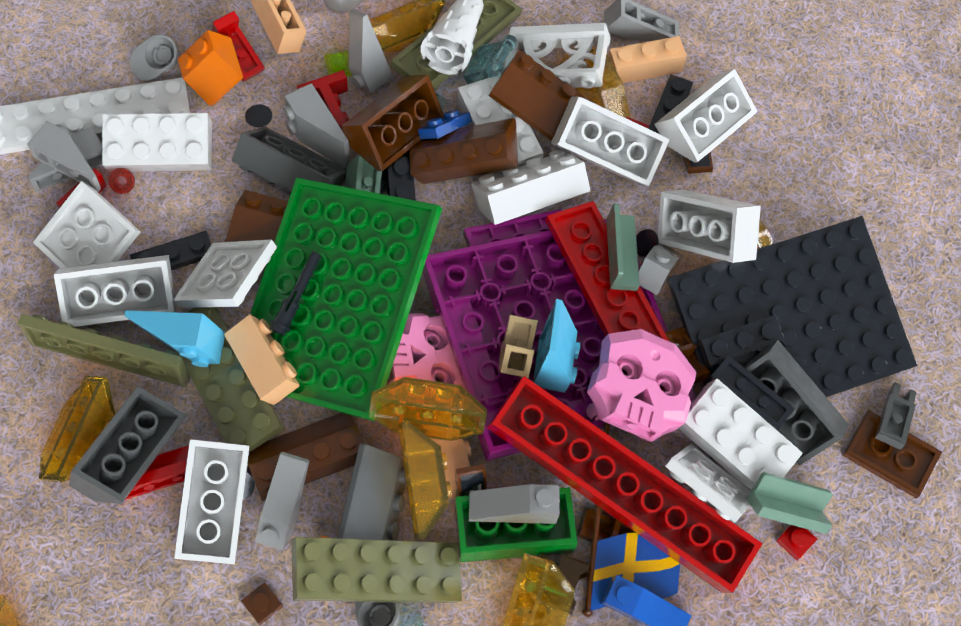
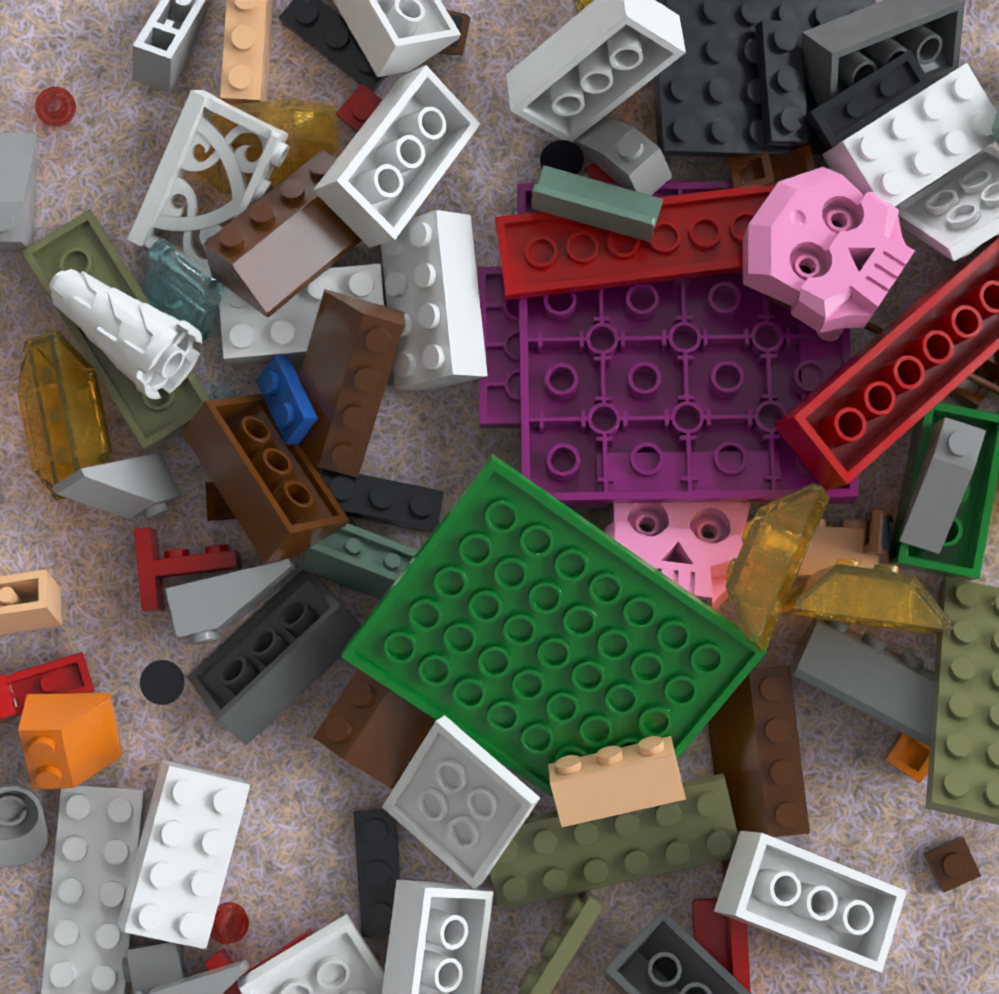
camera: 65 degrees left, 20 degrees up
(186, 333) = (552, 894): medium azure slope -> none
(282, 501) = (839, 804): light grey slope -> none
(290, 306) = (567, 734): black pin -> none
(337, 62) = (106, 533): clear neon green plate -> none
(516, 348) = (722, 413): tan brick -> none
(557, 351) = (743, 358): medium azure slope -> none

